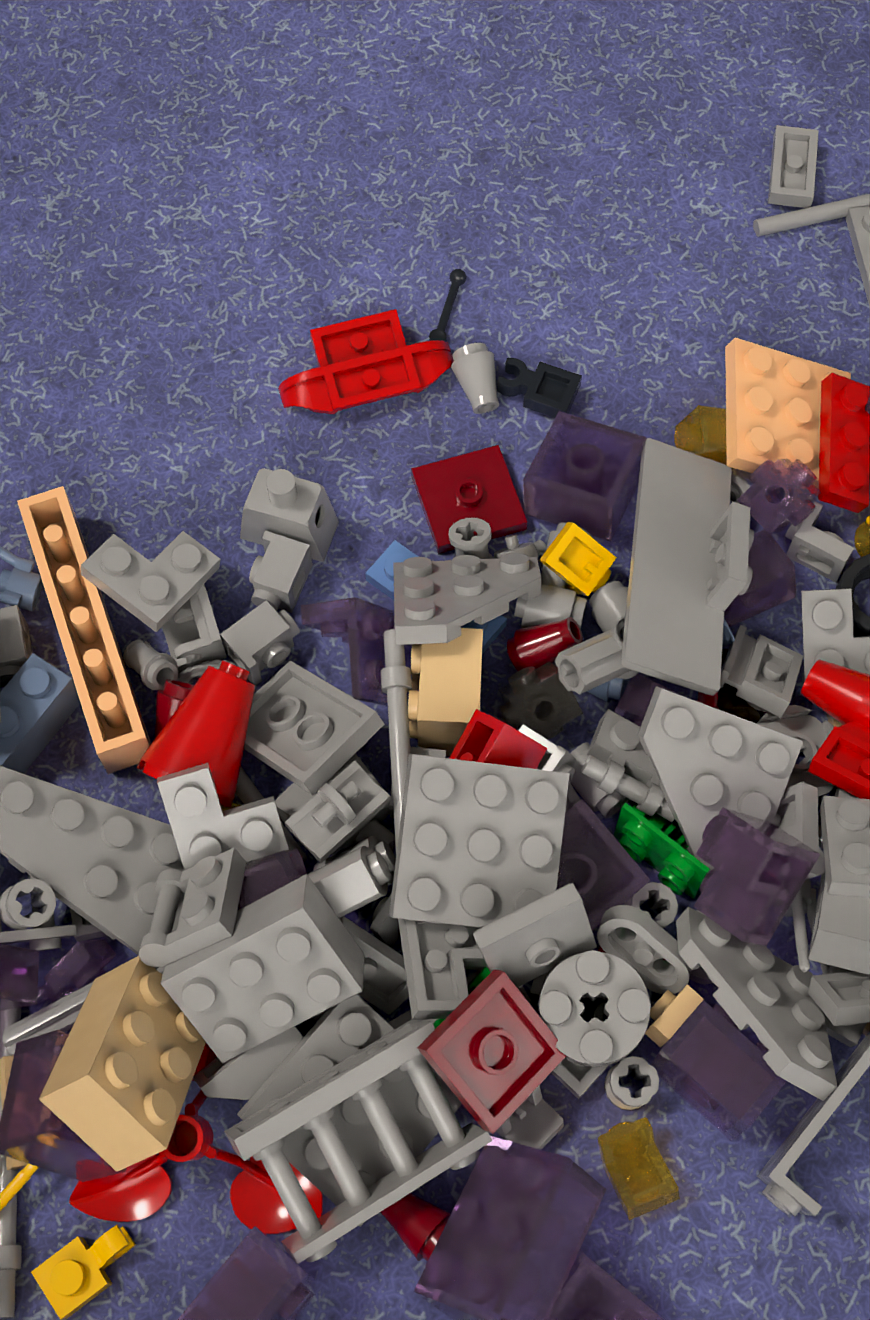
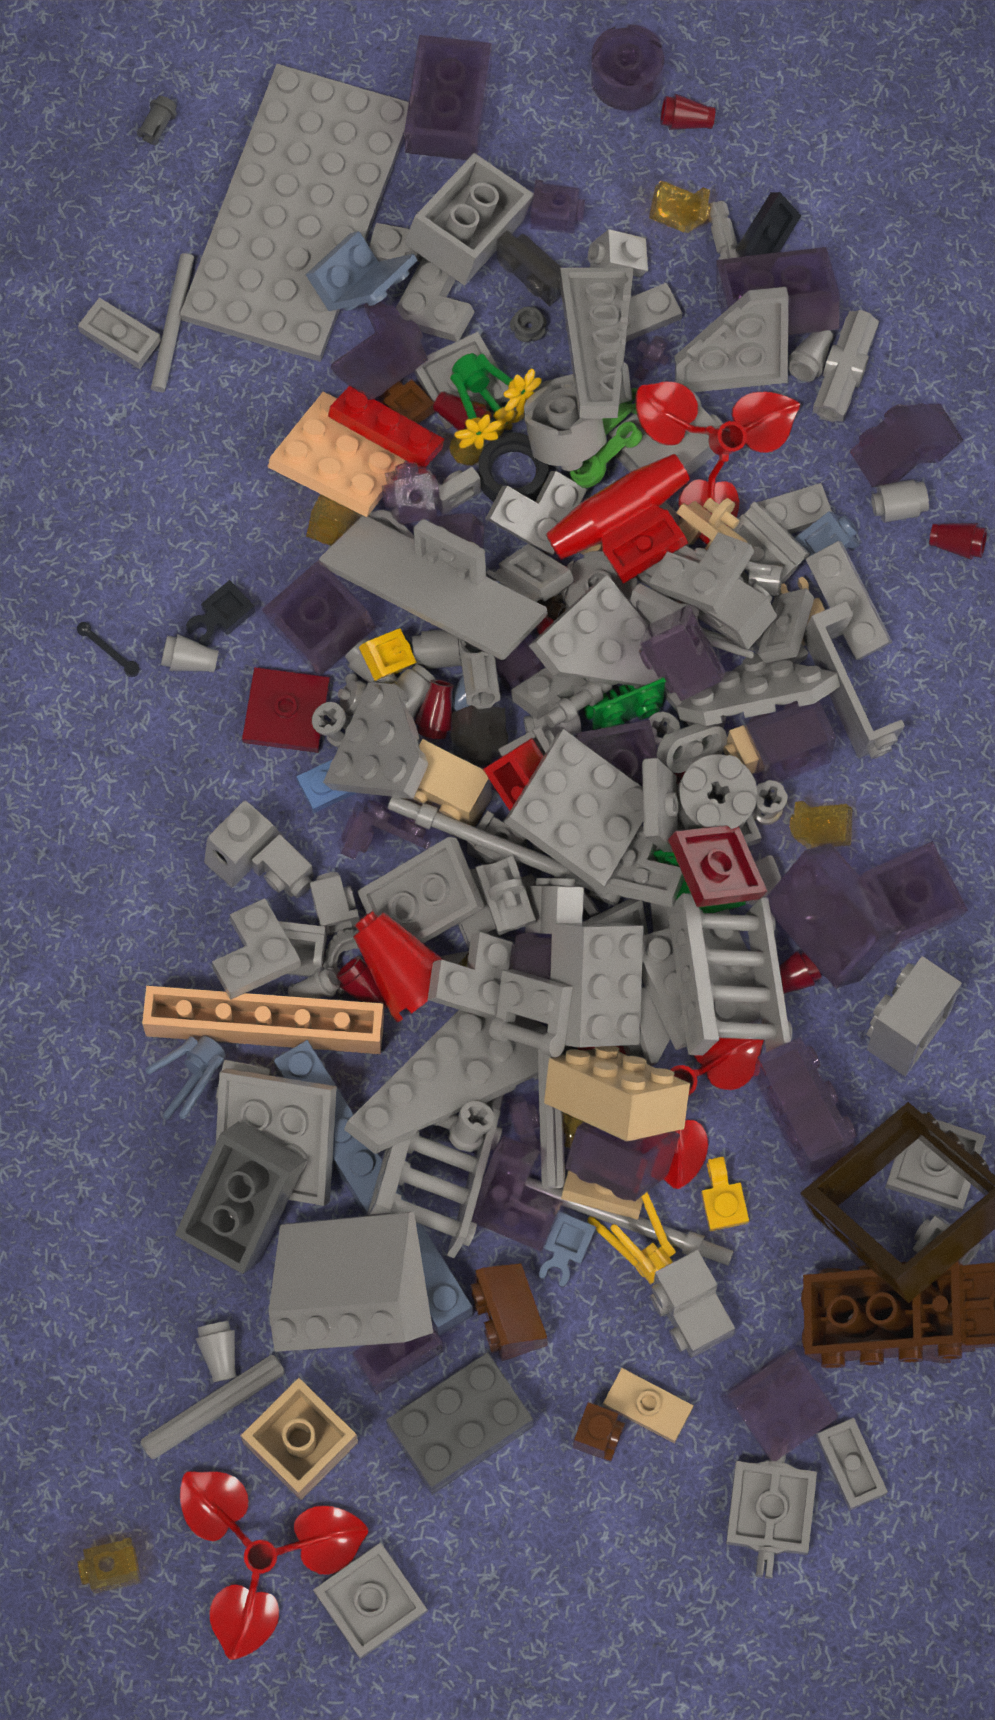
camera: 65 degrees left, 5 degrees up
(364, 364) = (135, 733): red plate -> none

